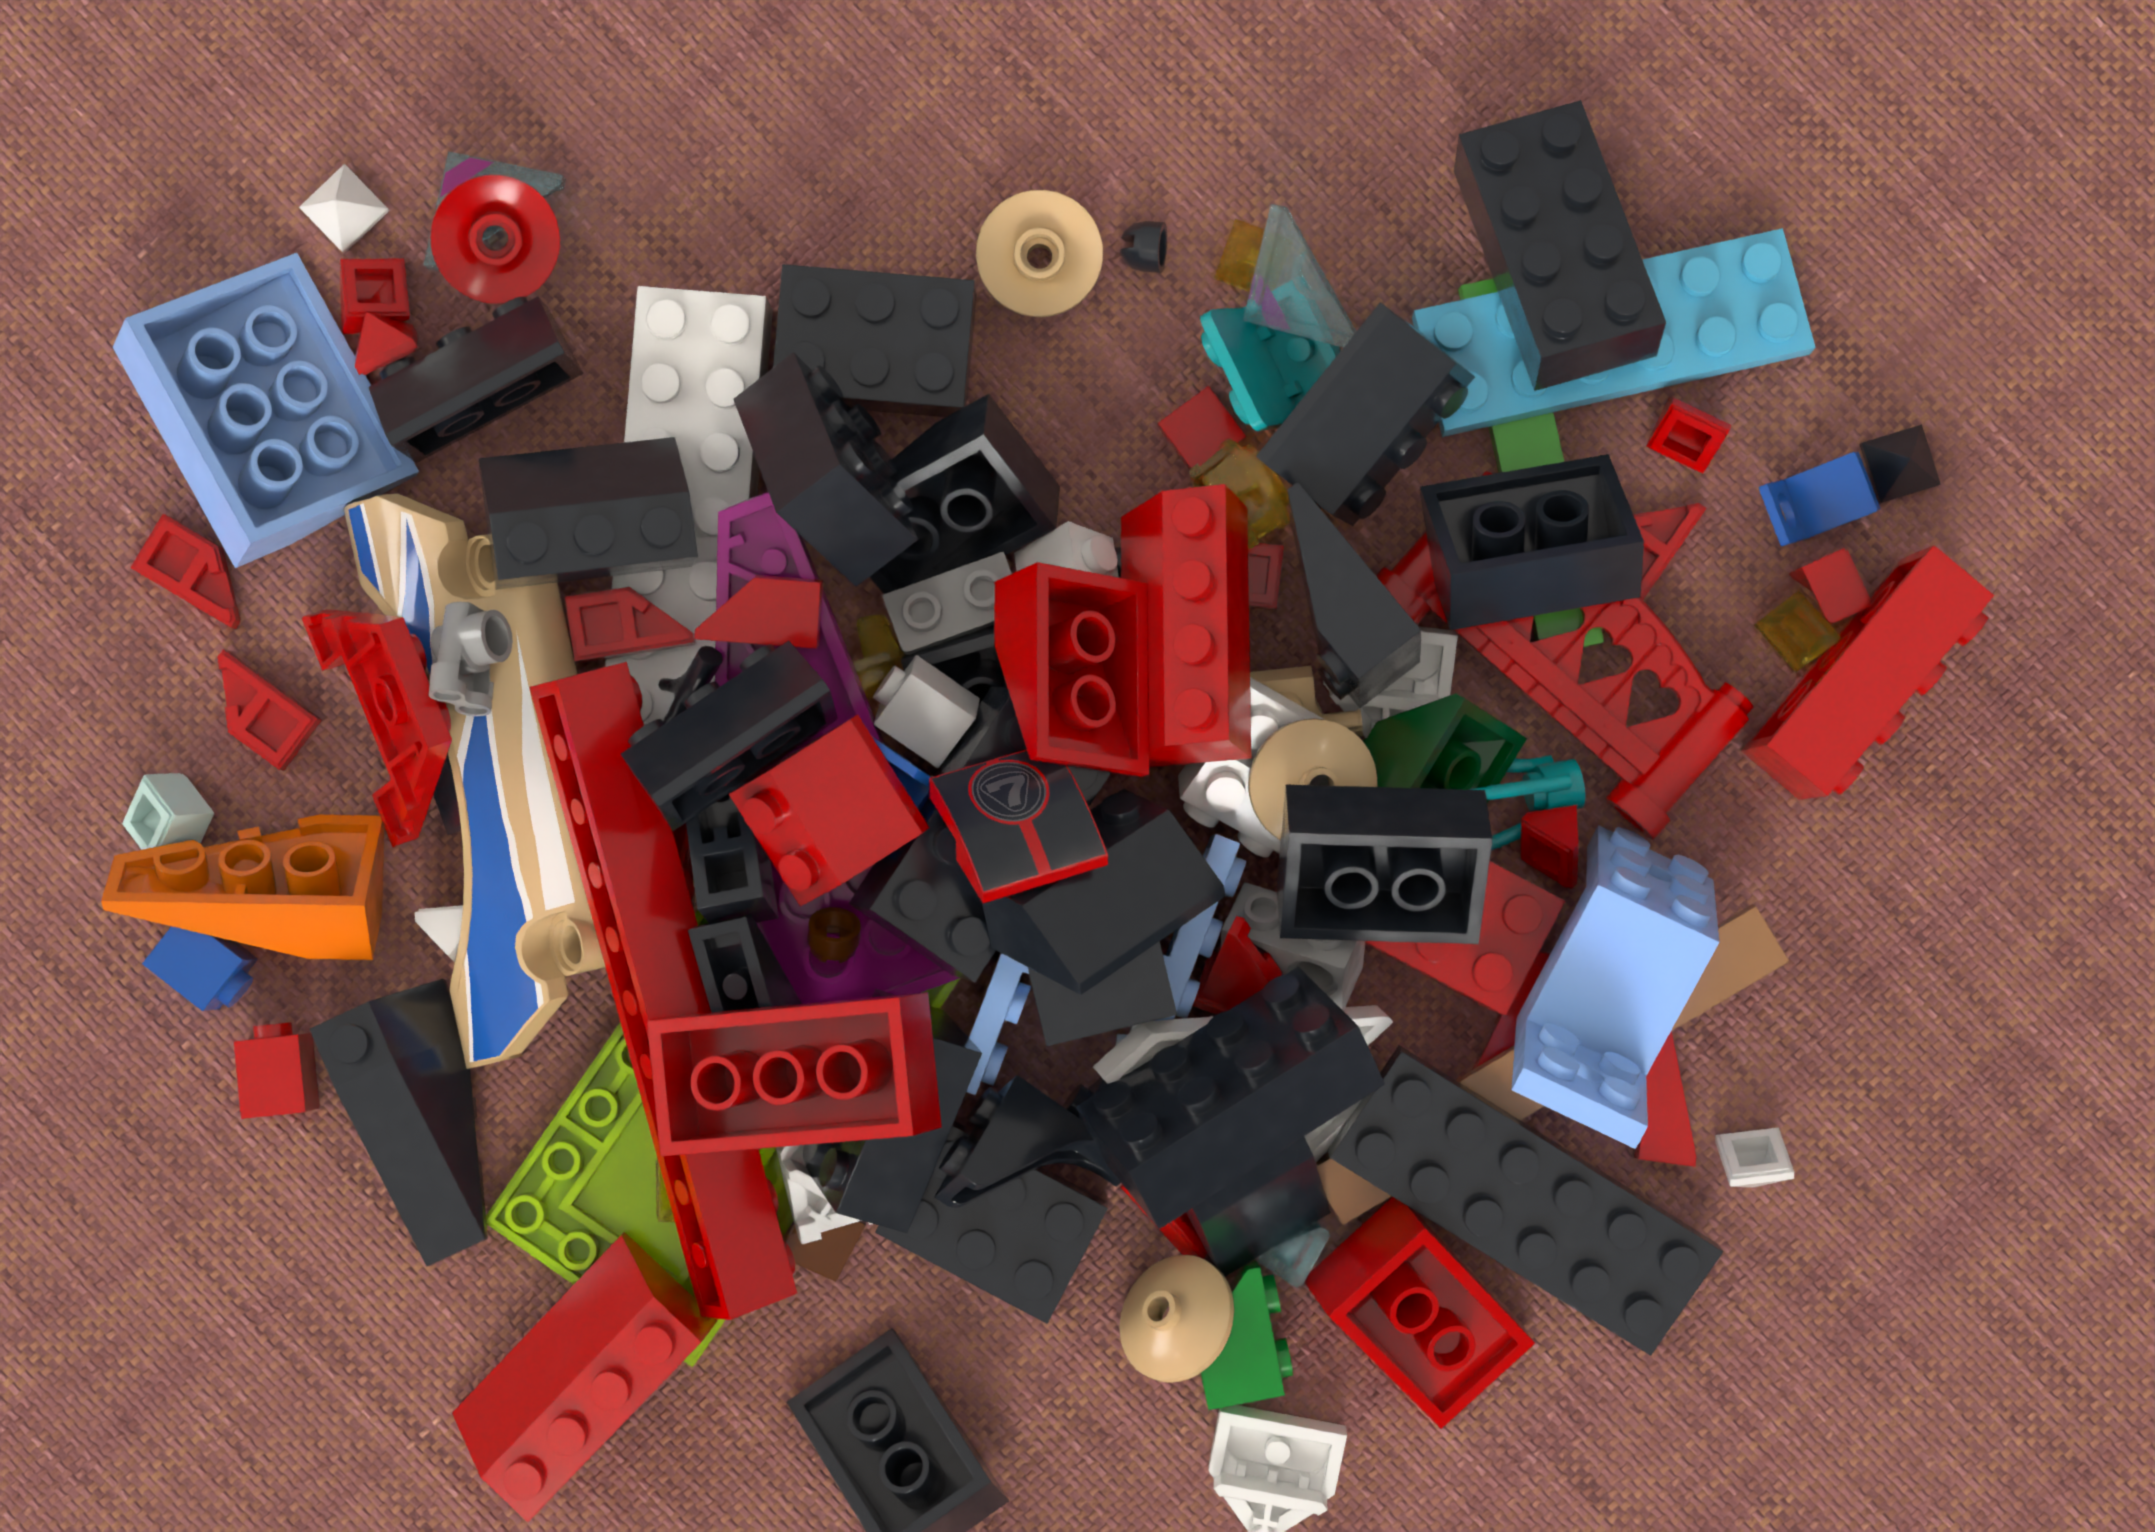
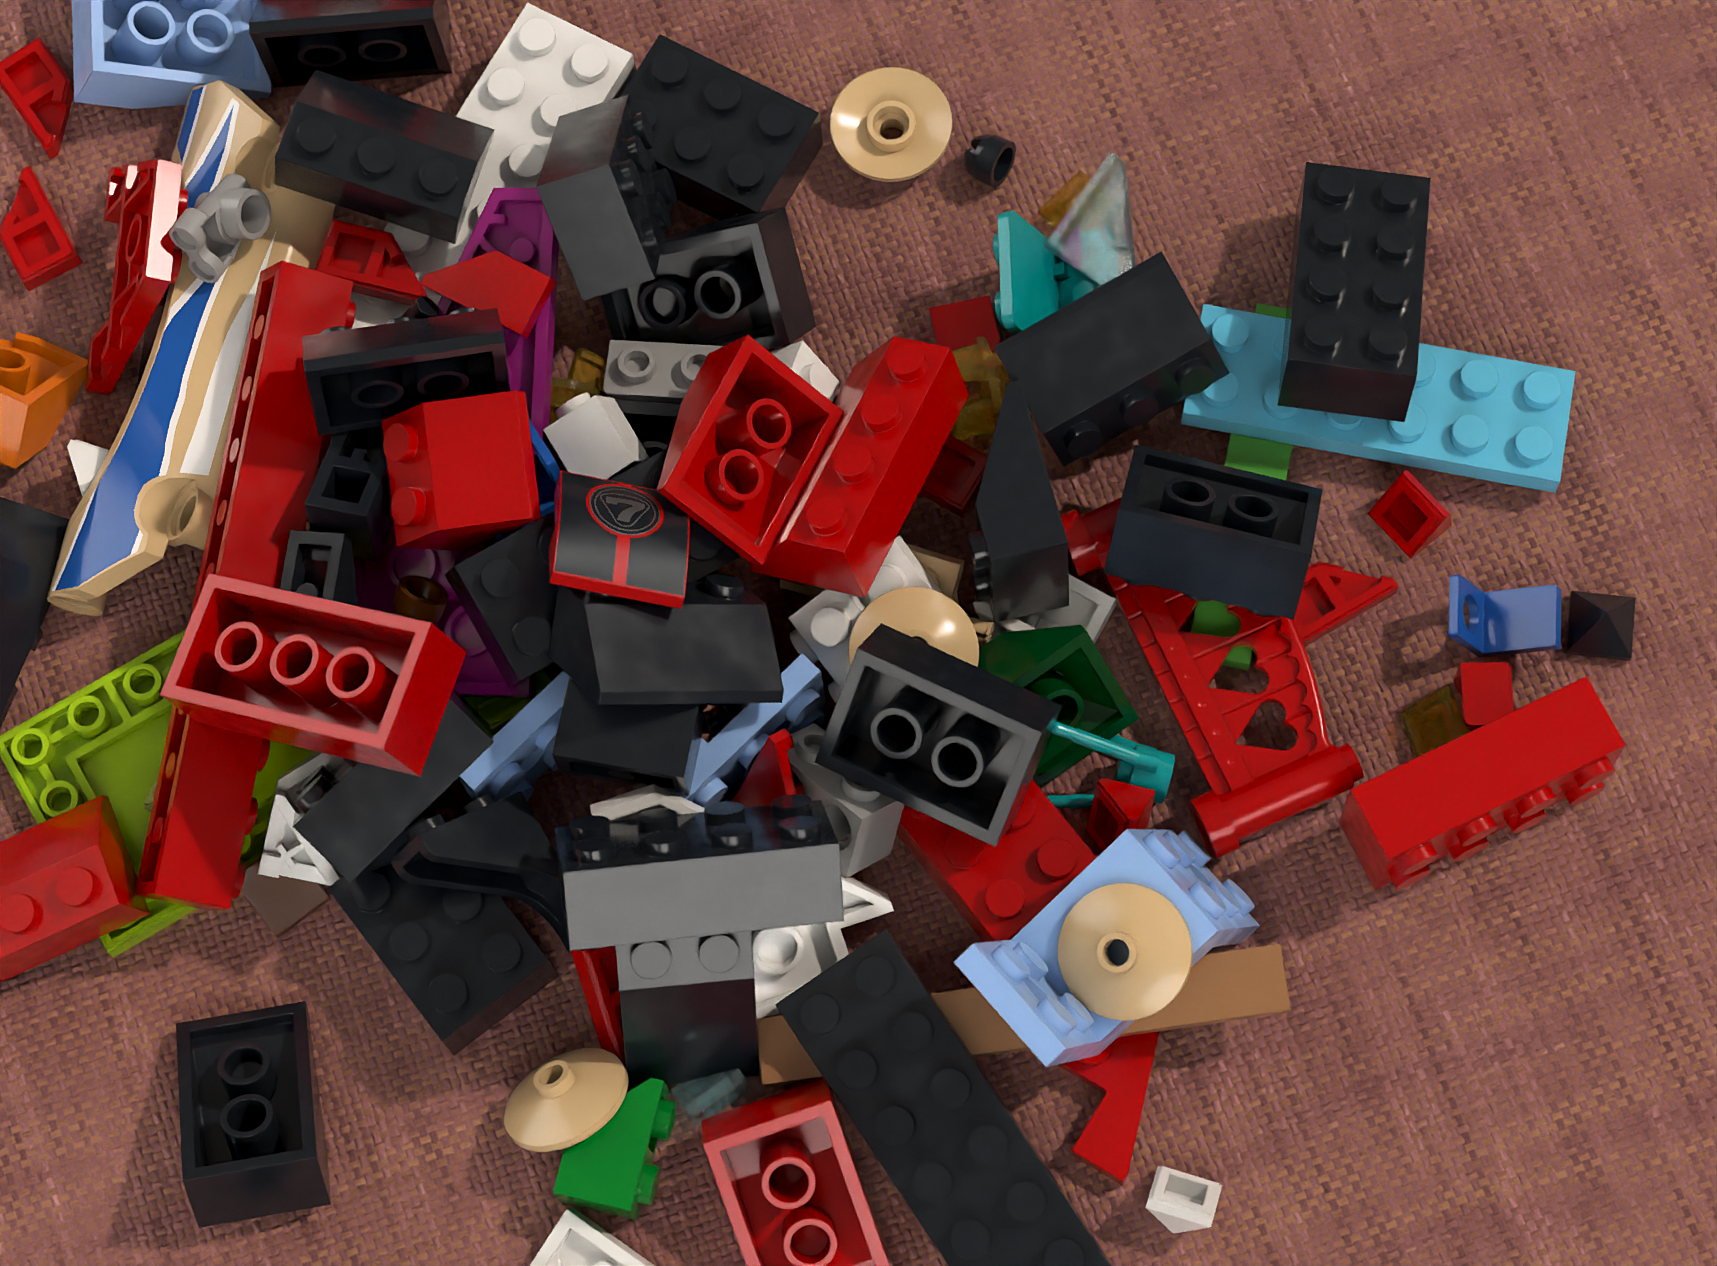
camera: 35 degrees right, 15 degrees down
(1632, 964) = (1157, 951): none -> tan dish

